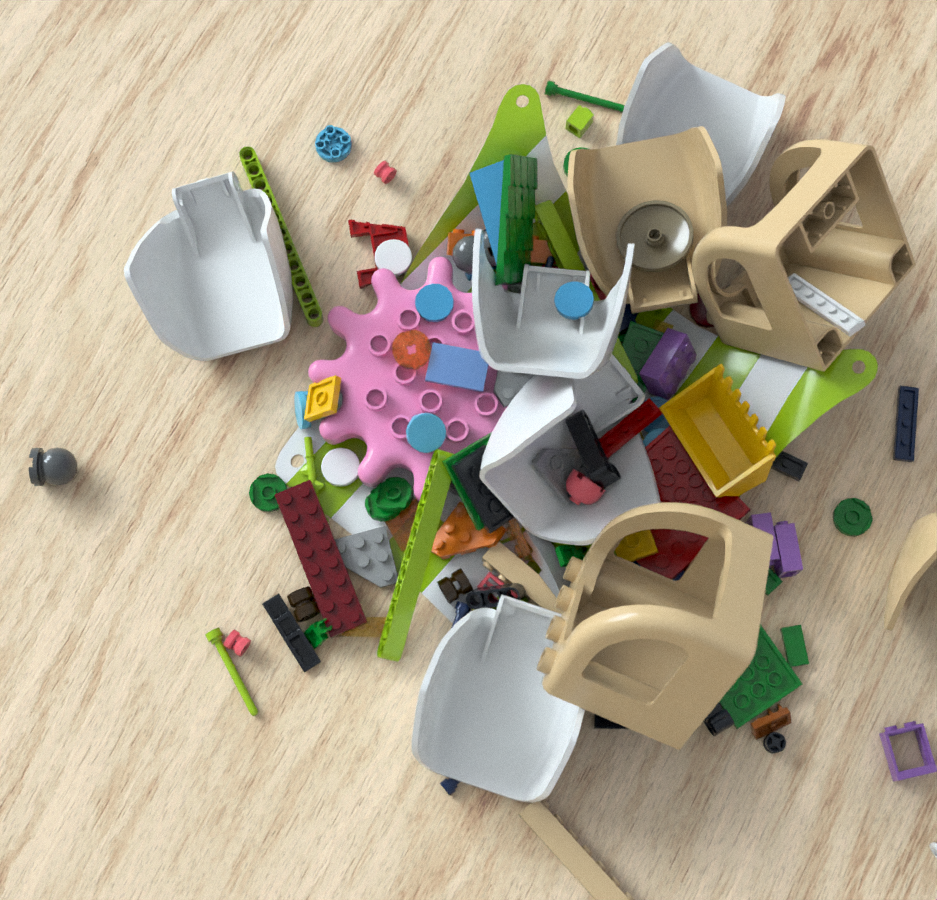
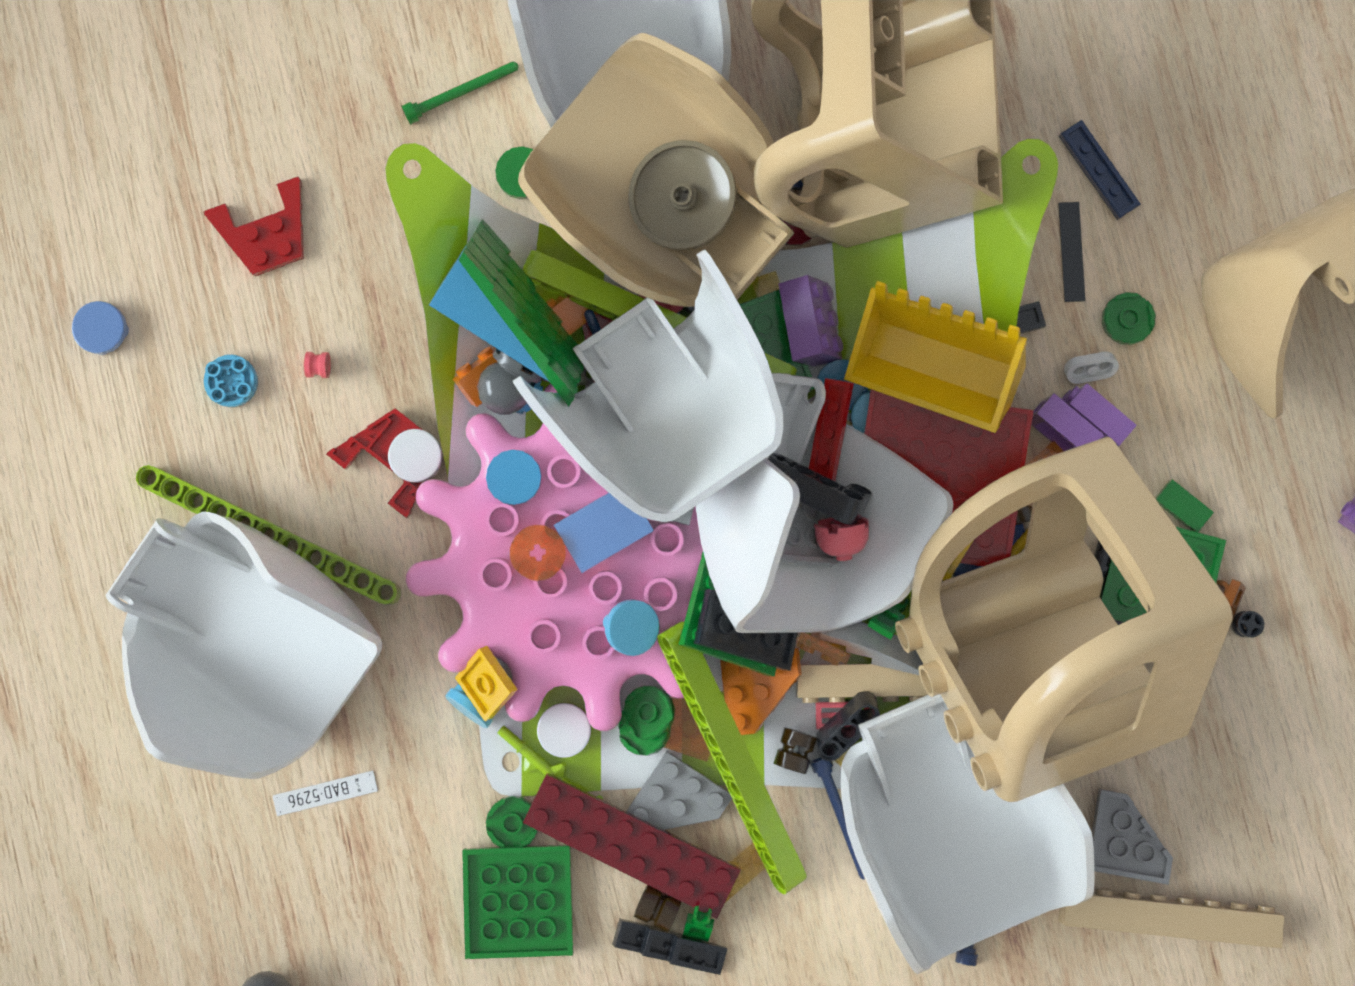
camera: 40 degrees left, 10 degrees up
(186, 392) = (325, 793): none -> white sticker
(233, 535) = (517, 902): none -> green plate
(292, 63) = (99, 327): none -> medium blue tile
(417, 91) = (269, 240): none -> red wing
(574, 300) = (665, 348): dark azure tile -> none
(579, 121) = (476, 124): lime brick -> none
(596, 802) = (1126, 841): none -> light grey plate
(806, 524) = (1088, 367): none -> white plate
(825, 306) = (939, 122): white tile -> none
(851, 455) = (1071, 252): none -> black sticker

